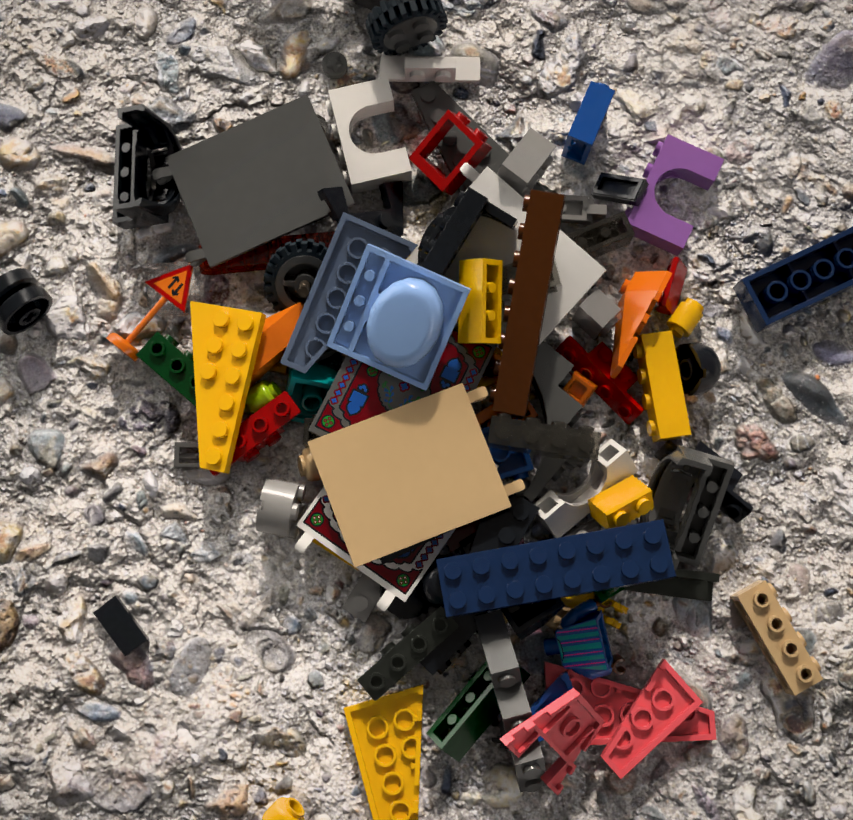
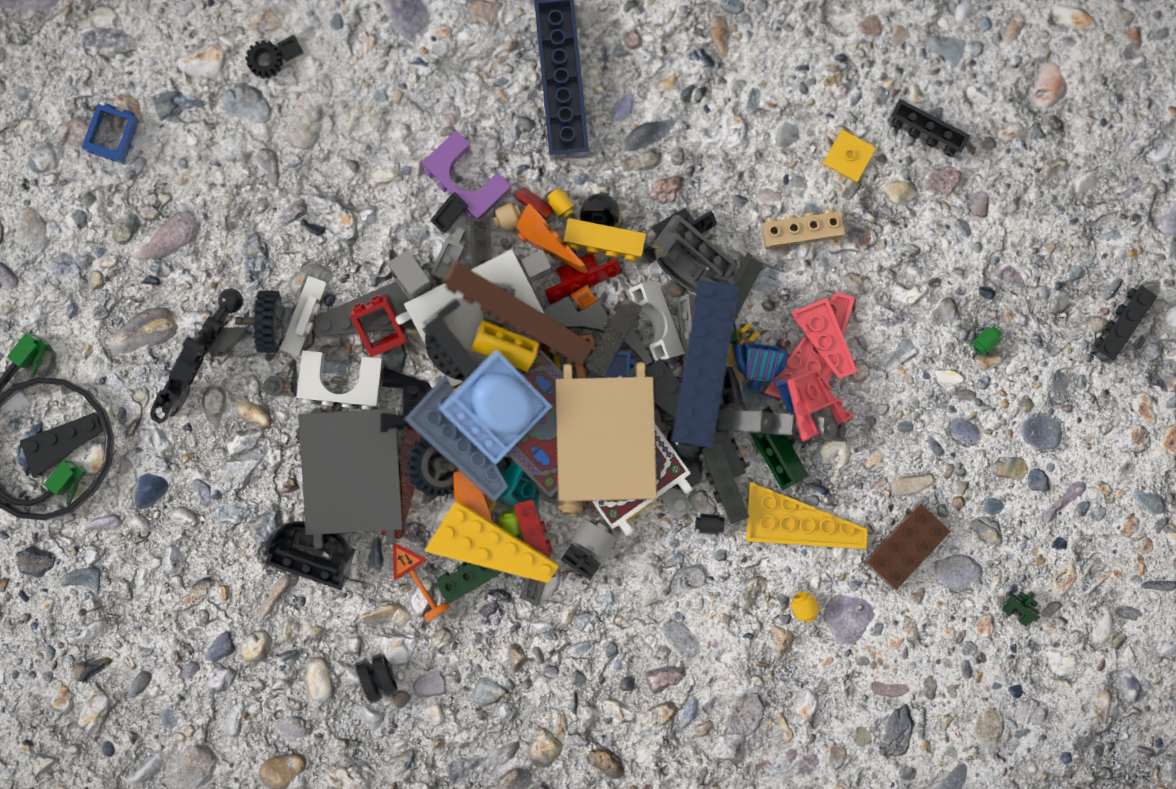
camera: 70 degrees left, 5 degrees up
(121, 625) = (635, 677): black tile -> none
(244, 502) = (580, 561): none -> black hips
(349, 651) = (709, 524): none -> black brick
(587, 122) = (392, 217): blue window -> none
(621, 503) = (676, 300): yellow brick -> none
(642, 258) = (507, 216): none -> tan head

